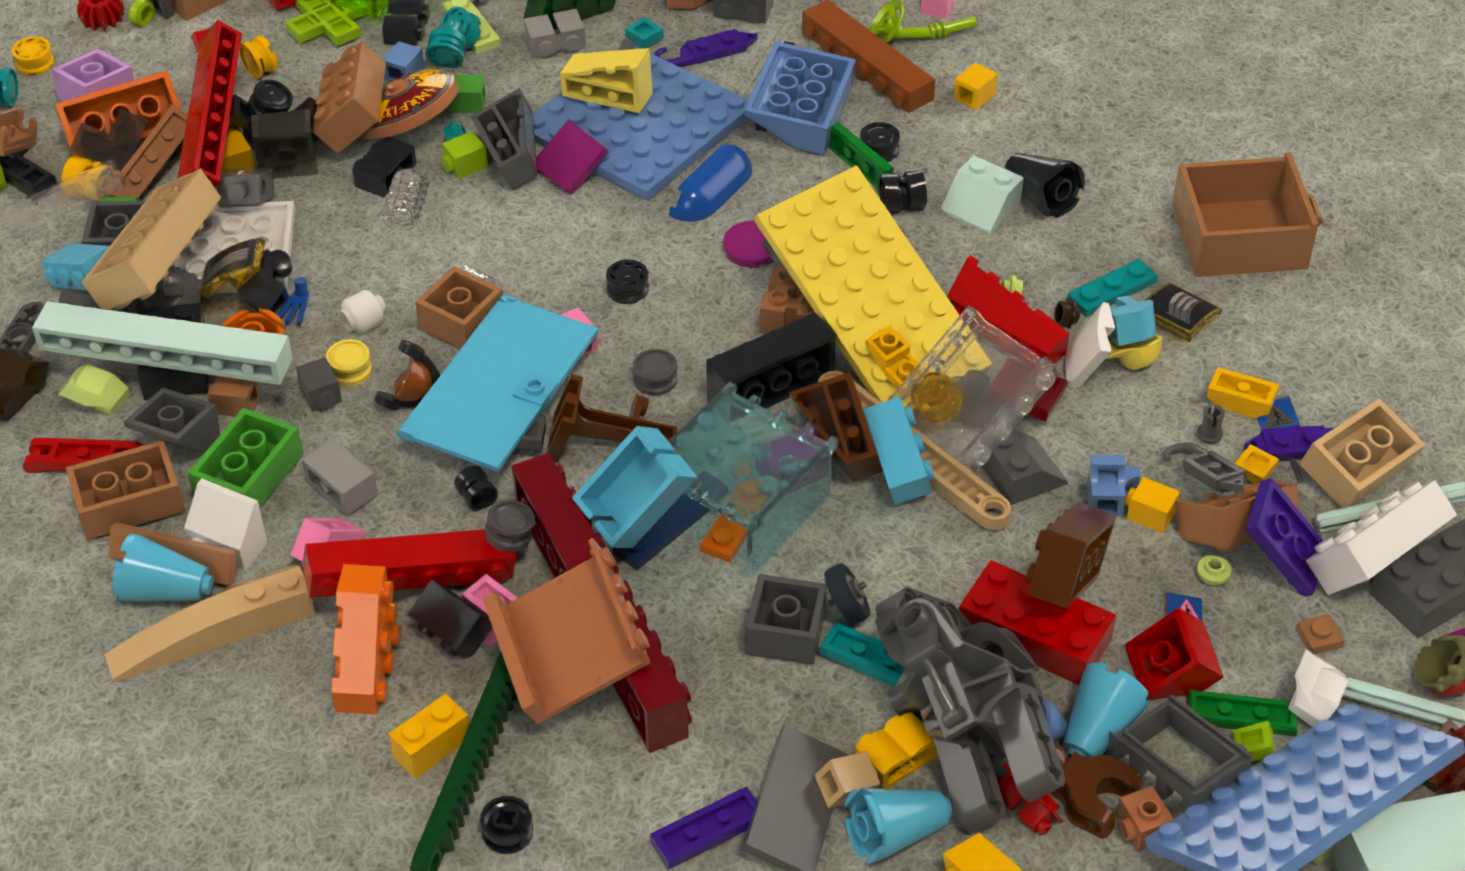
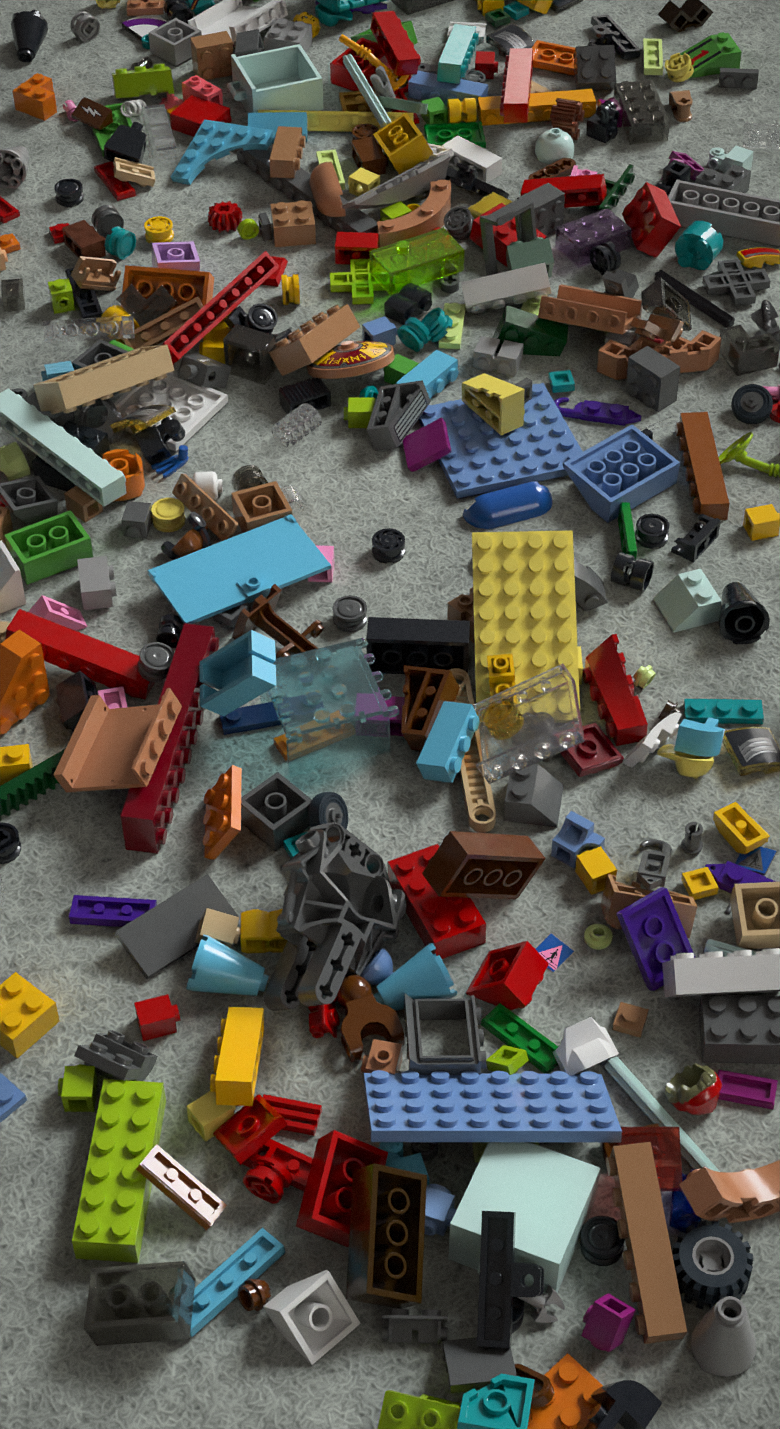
camera: 35 degrees right, 0 degrees up
(388, 332) = (198, 501): none -> medium nougat bracket
(412, 282) = (247, 477): none -> clear smoke wheel
(502, 76) = (435, 372): none -> medium azure brick
(734, 650) = (222, 812): none -> orange plate
(927, 130) = (697, 539): none -> black hinge

